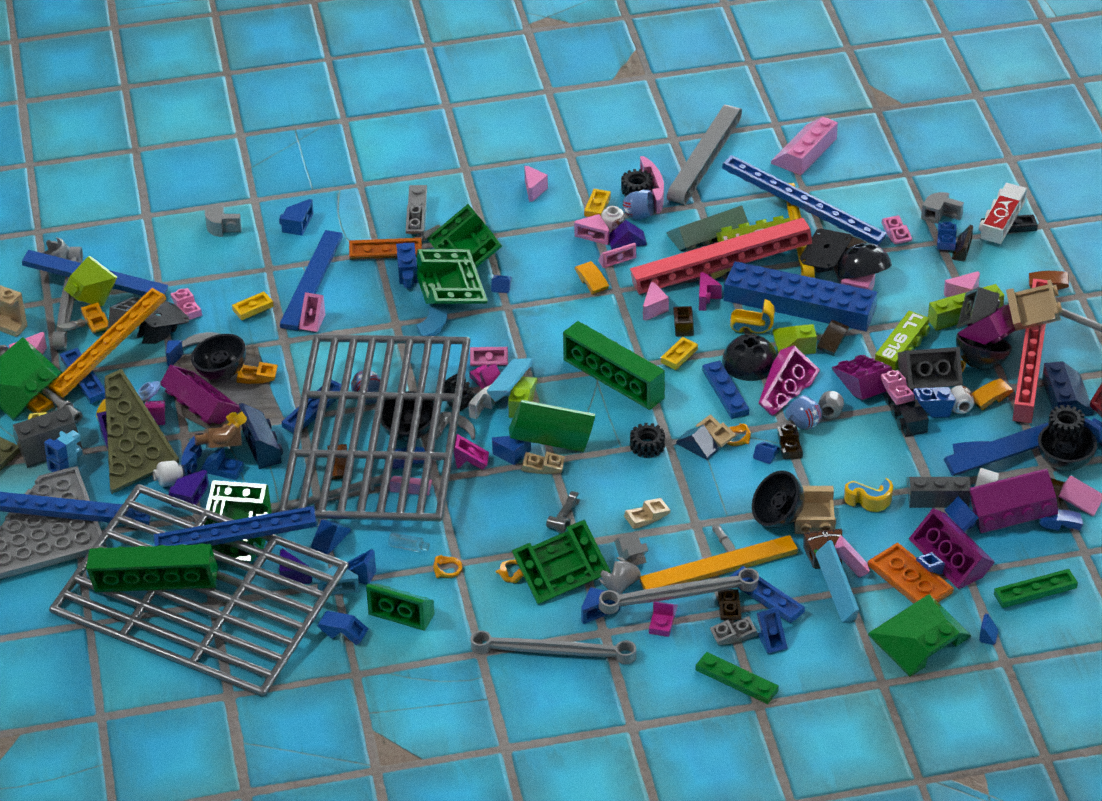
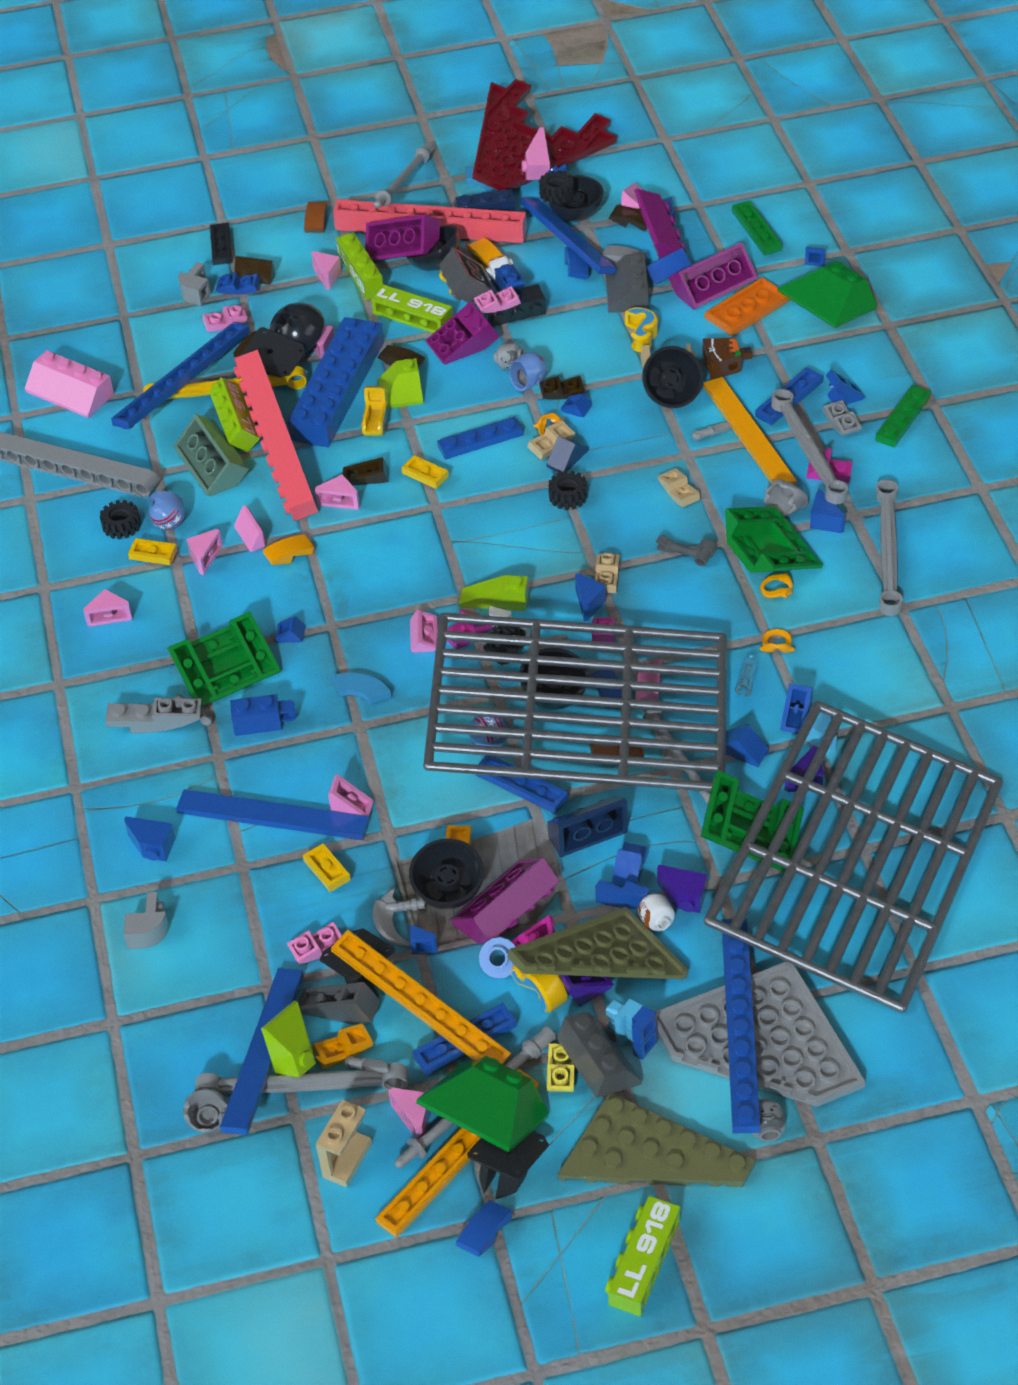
camera: 90 degrees left, 5 degrees up
(152, 568) = (859, 878): green brick -> none
(223, 436) = (597, 852): medium nougat torso -> none
(241, 528) = (786, 805): blue plate -> none
(333, 623) = (892, 714): blue slope -> none
(379, 248) = (220, 743): orange tile -> none
(399, 606) = (854, 665): green slope -> none
(449, 277) = (299, 667): green slope -> none
(509, 378) = (481, 594): medium azure slope -> none
(551, 425) = (574, 550): green slope -> none
(613, 217) = (190, 527): white head -> none
(614, 365) = (457, 513): green brick -> none
(626, 234) = (218, 520): dark purple slope -> none
(631, 549) = (745, 491): light grey brick -> none
(658, 184) = (138, 495): bright pink slope -> none
(708, 290) = (321, 455): dark pink slope -> none
(729, 604) = (814, 420): dark brown slope -> none
(749, 357) = (430, 419): black piece -> none
(787, 378) = (458, 385): dark pink wedge -> none
(837, 582) = (775, 340): medium azure slope -> none
(851, 557) = (741, 332): bright pink slope -> none
(931, 563) = (735, 286): blue slope -> none
(977, 305) = (386, 243): dark grey slope -> none
(1002, 213) = (216, 236): white brick -> none
(1034, 306) = (392, 194): tan panel -> none

